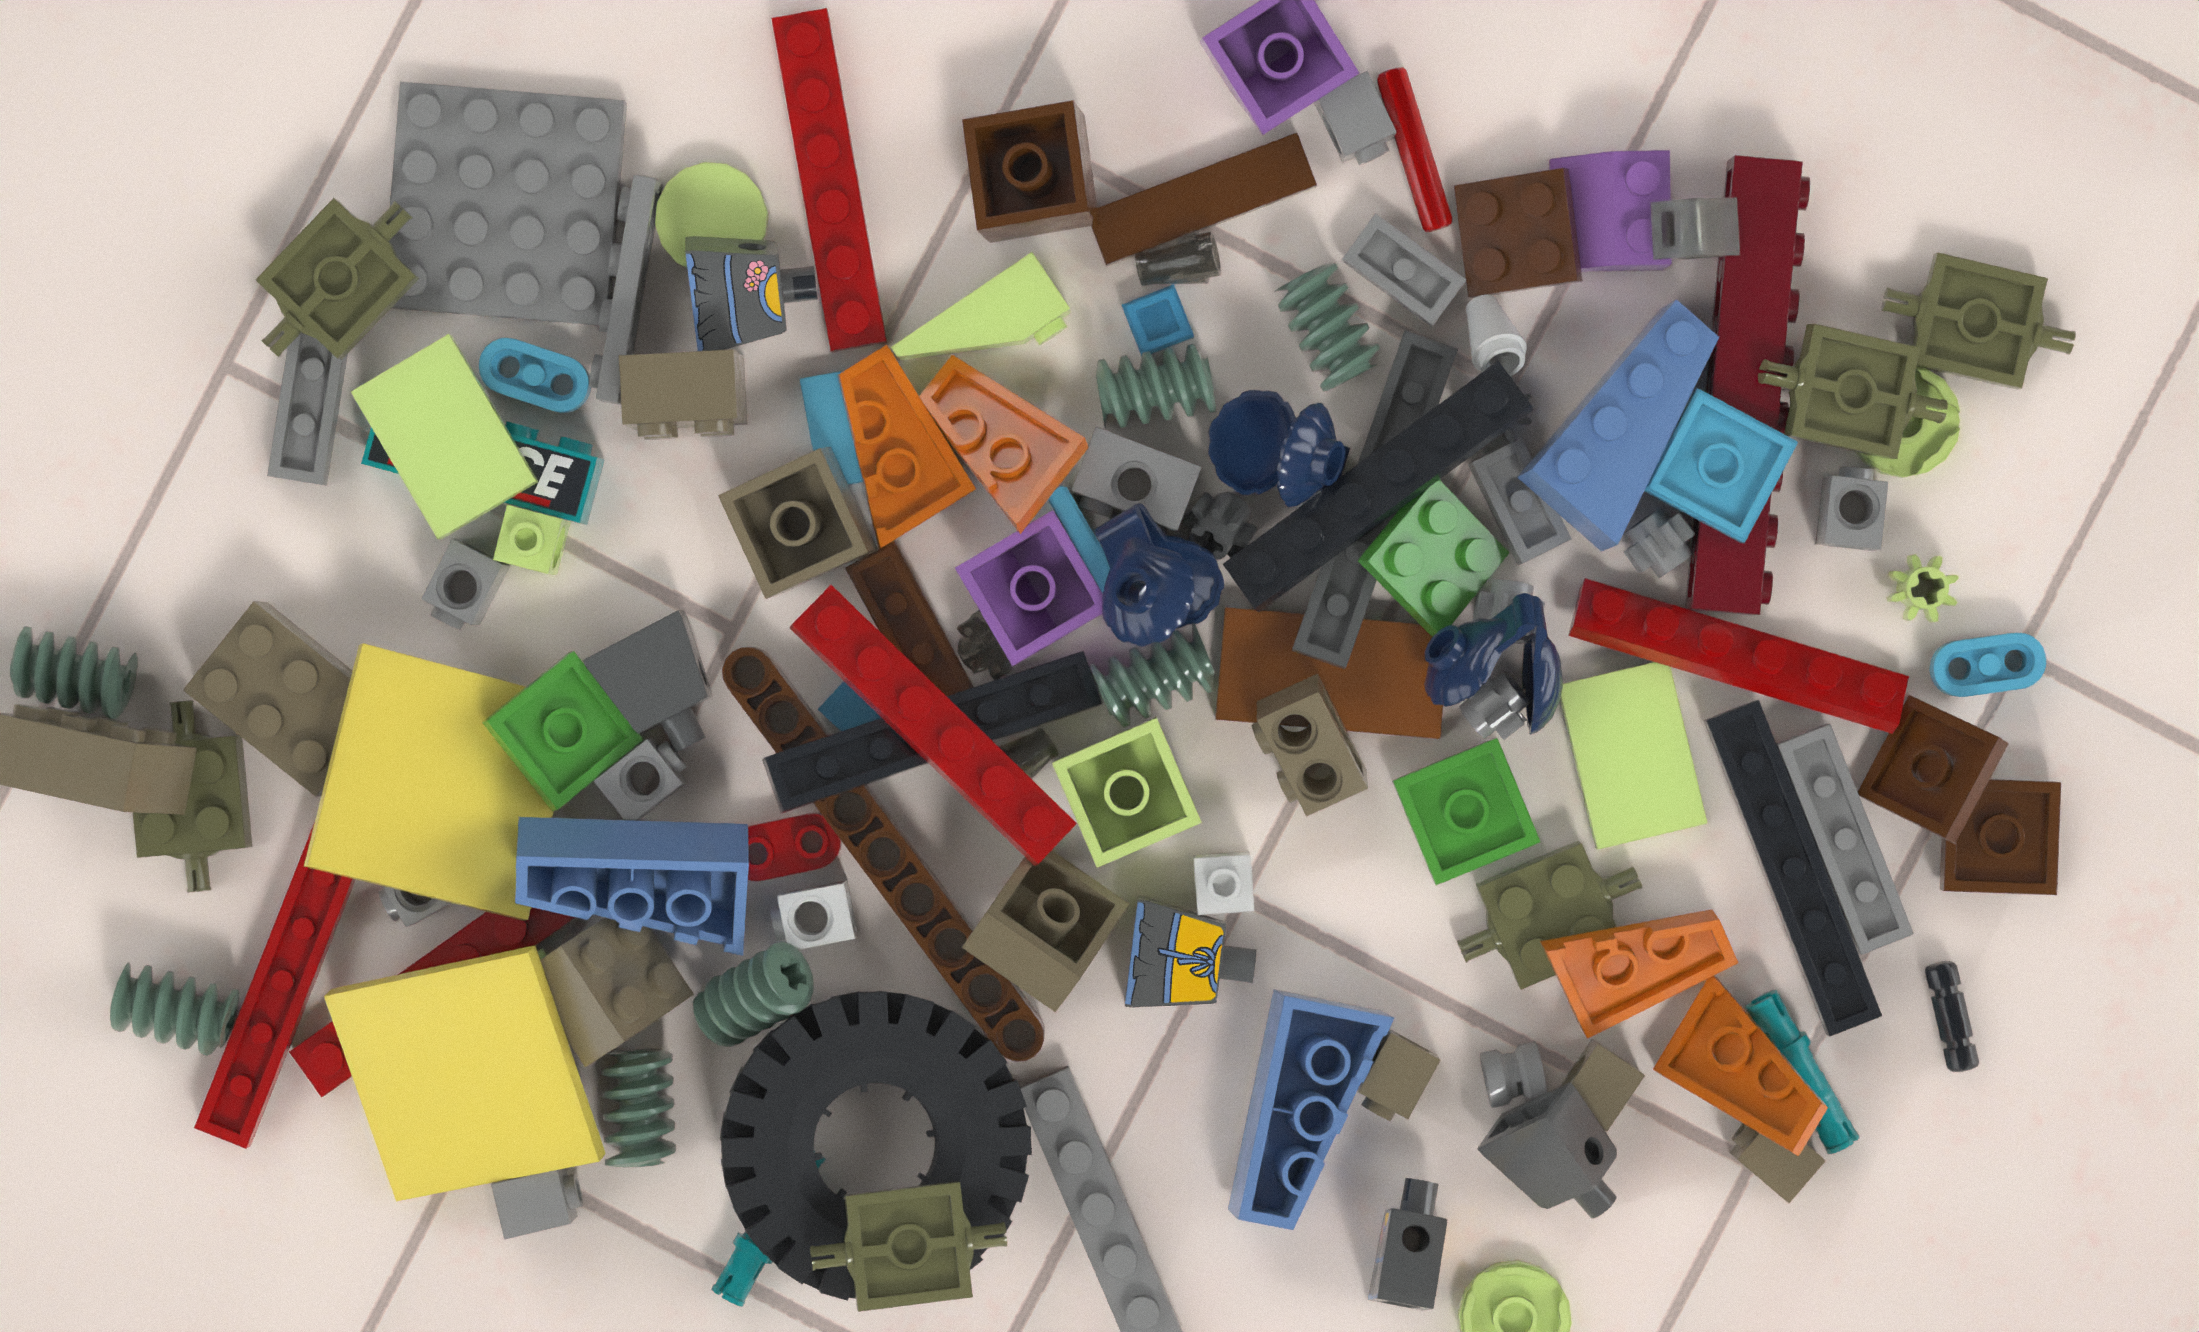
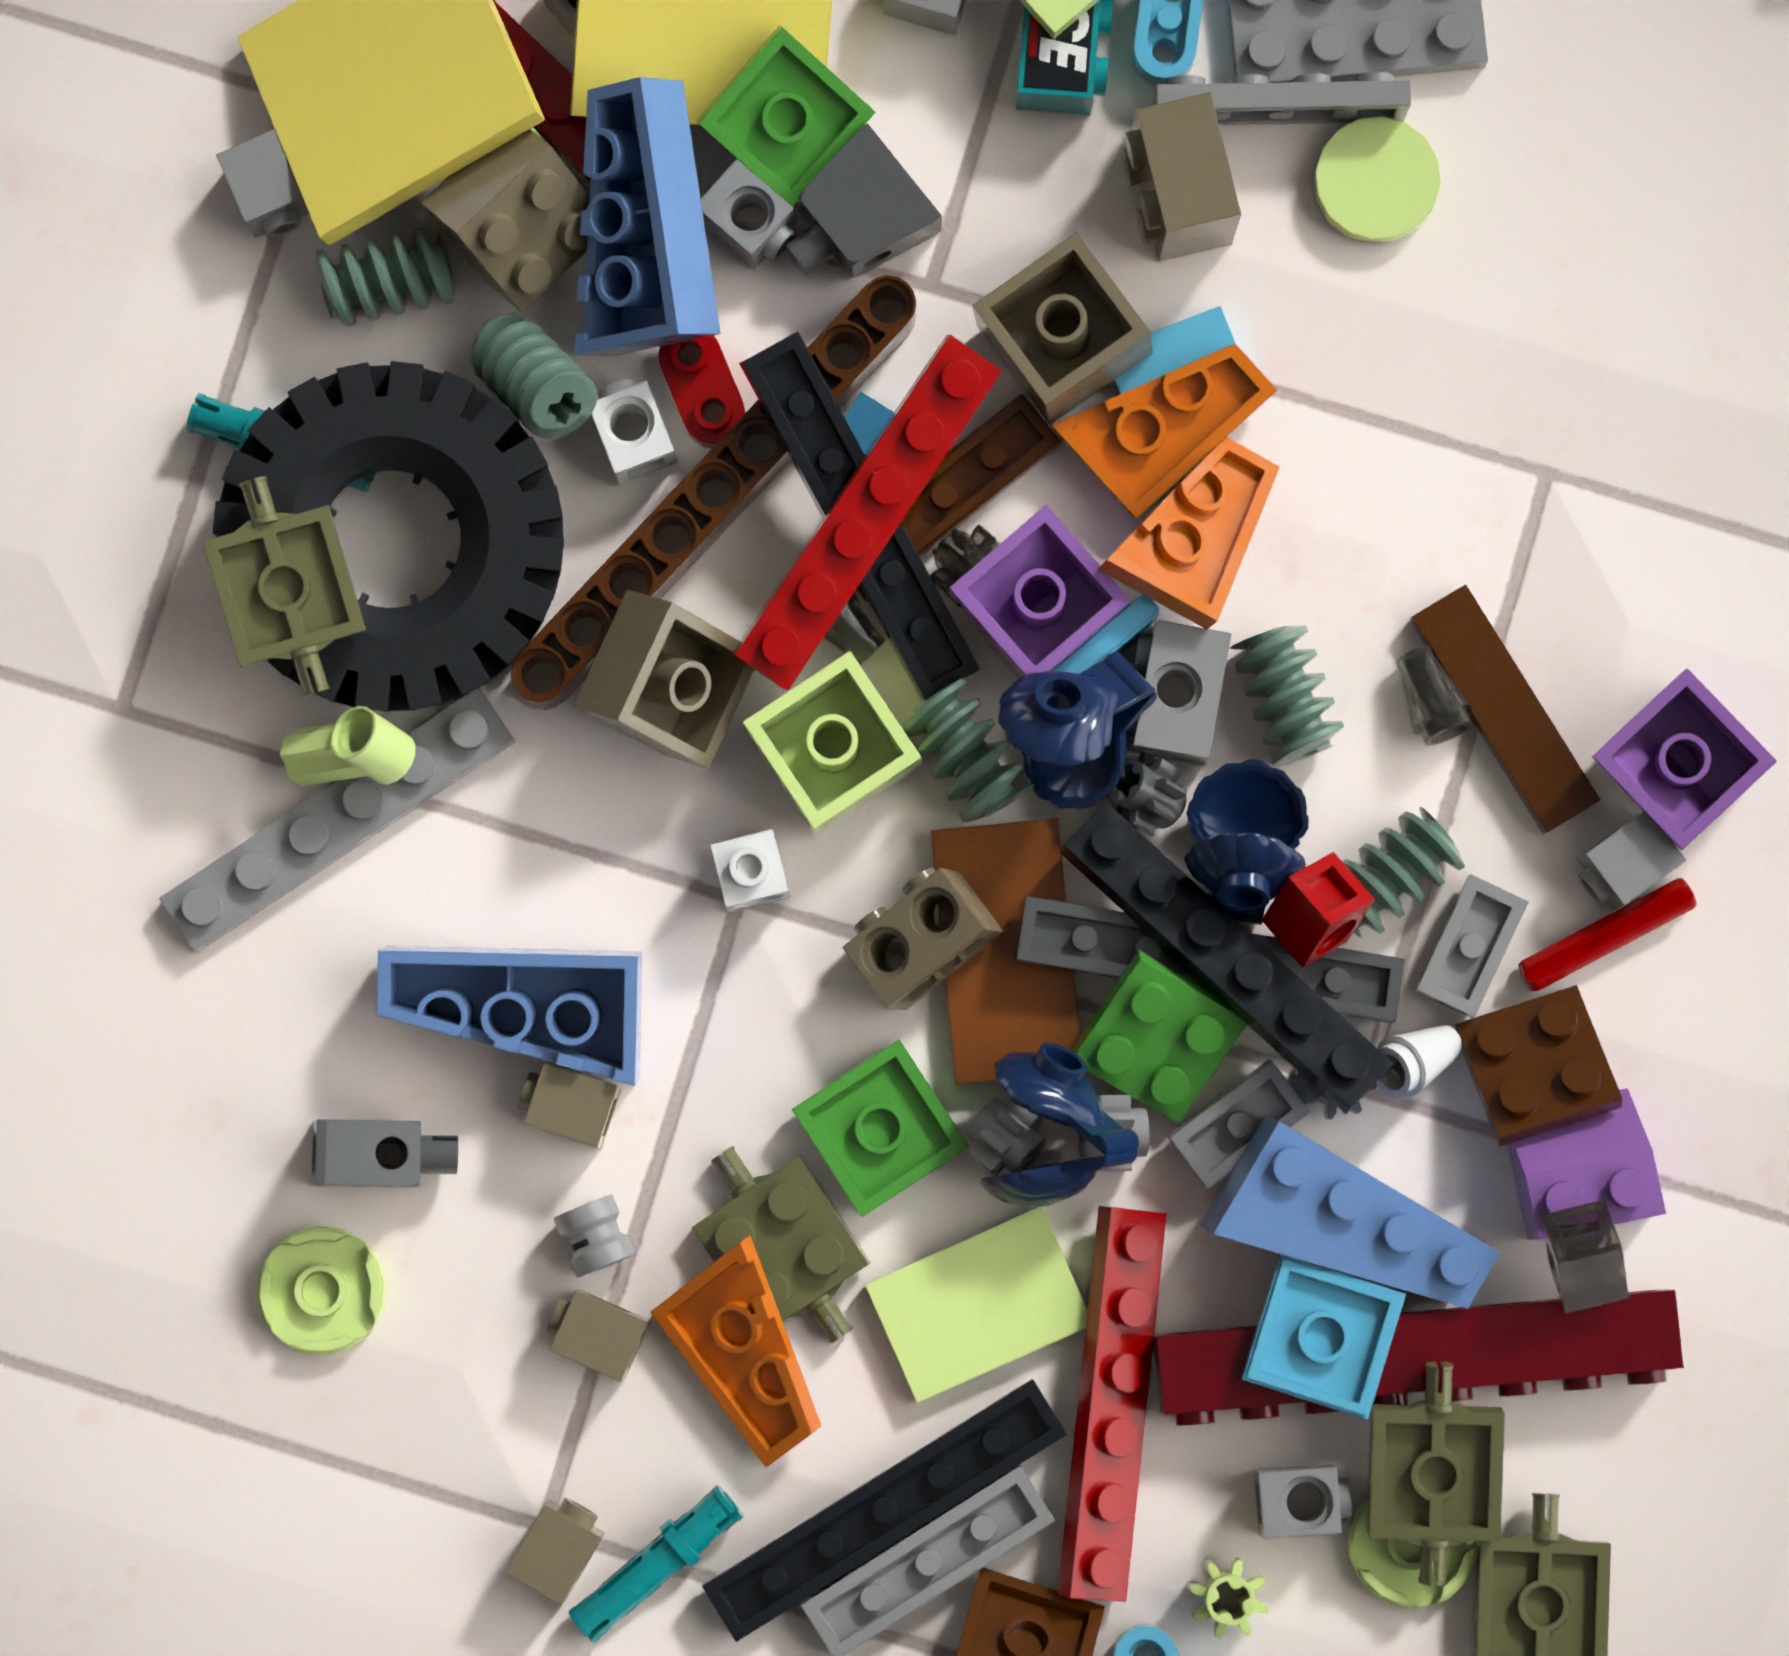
camera: 80 degrees right, 5 degrees down
(531, 540) = (988, 48): yellowish green brick -> none
(741, 290) = (1306, 221): dark grey torso -> none
(829, 180) = (1444, 299): red plate -> none
(1000, 313) = (1335, 508): yellowish green slope -> none
(1030, 171) = (1499, 511): reddish brown brick -> none
(1054, 1214) = (347, 749): none -> yellowish green piece
(1158, 320) = (1361, 686): dark azure tile -> none
(1181, 957) = (659, 839): torso -> none
(1353, 399) = (1317, 909): none -> red brick
(1554, 1151) = (516, 1296): dark grey torso -> none
(1659, 542) = (1222, 1288): light grey gear -> none
(1739, 1070) = (645, 1489): orange wing -> none

